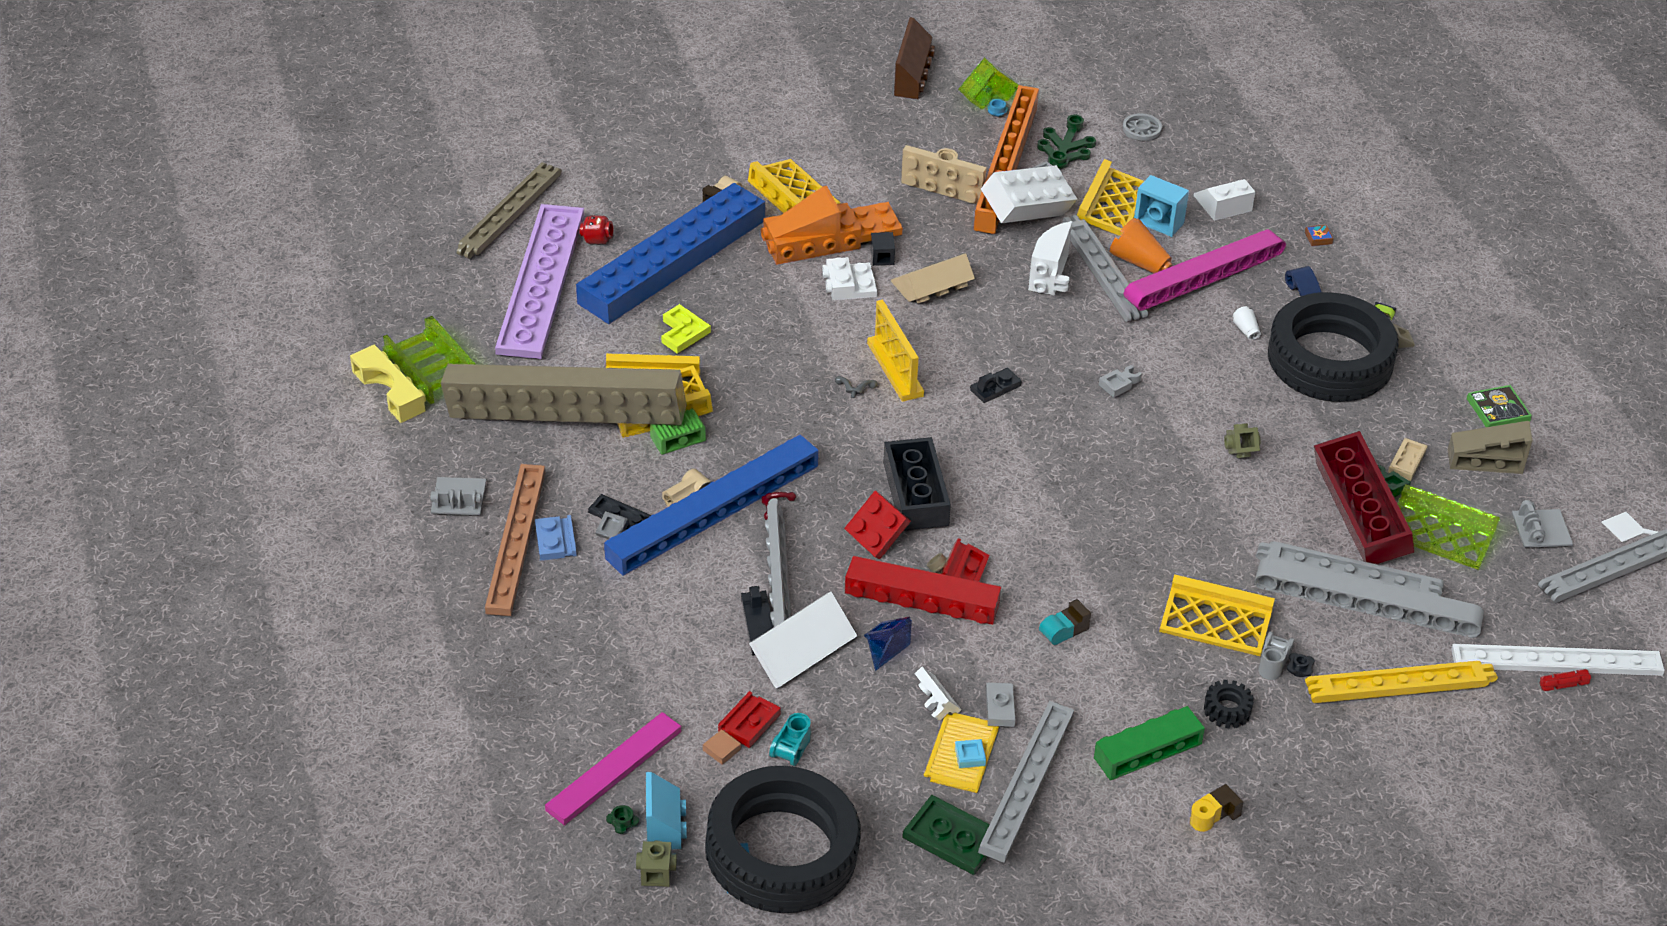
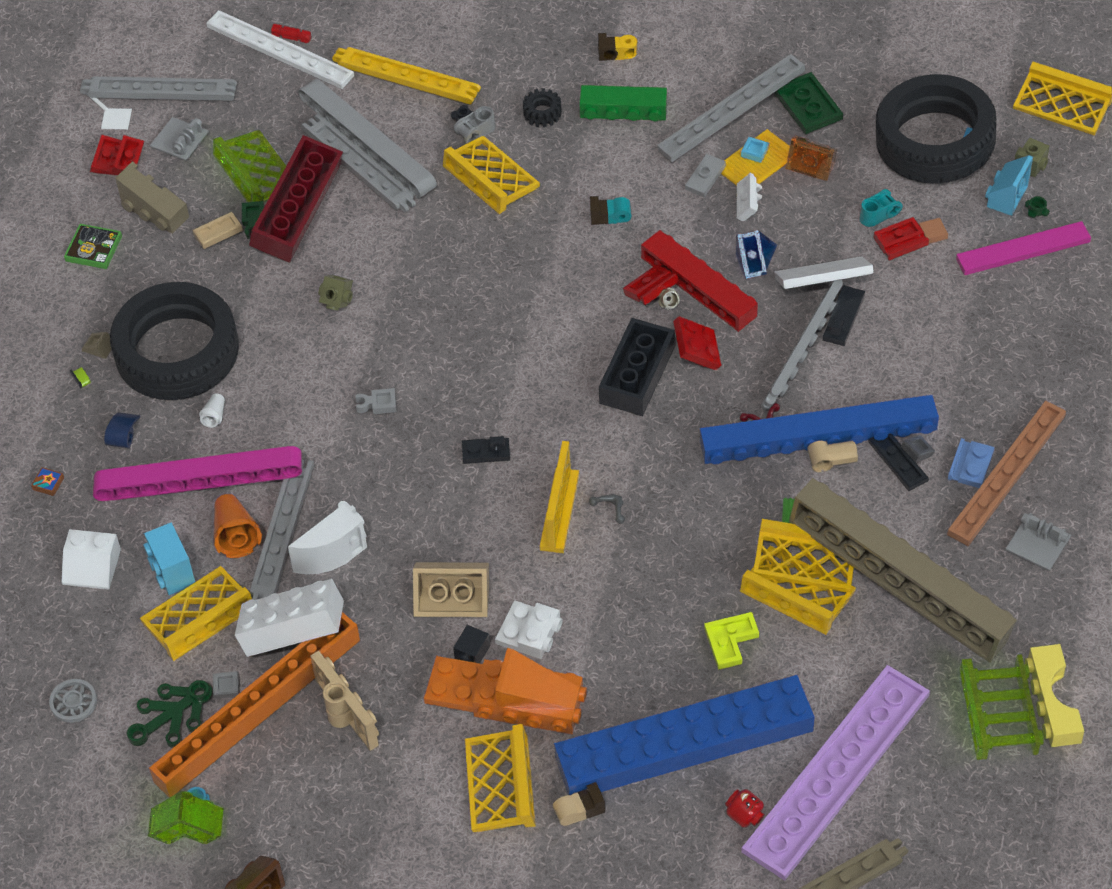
camera: 145 degrees left, 10 degrees up
(899, 753) = (811, 158): none -> clear orange slope
(1577, 488) = (116, 154): none -> red slope

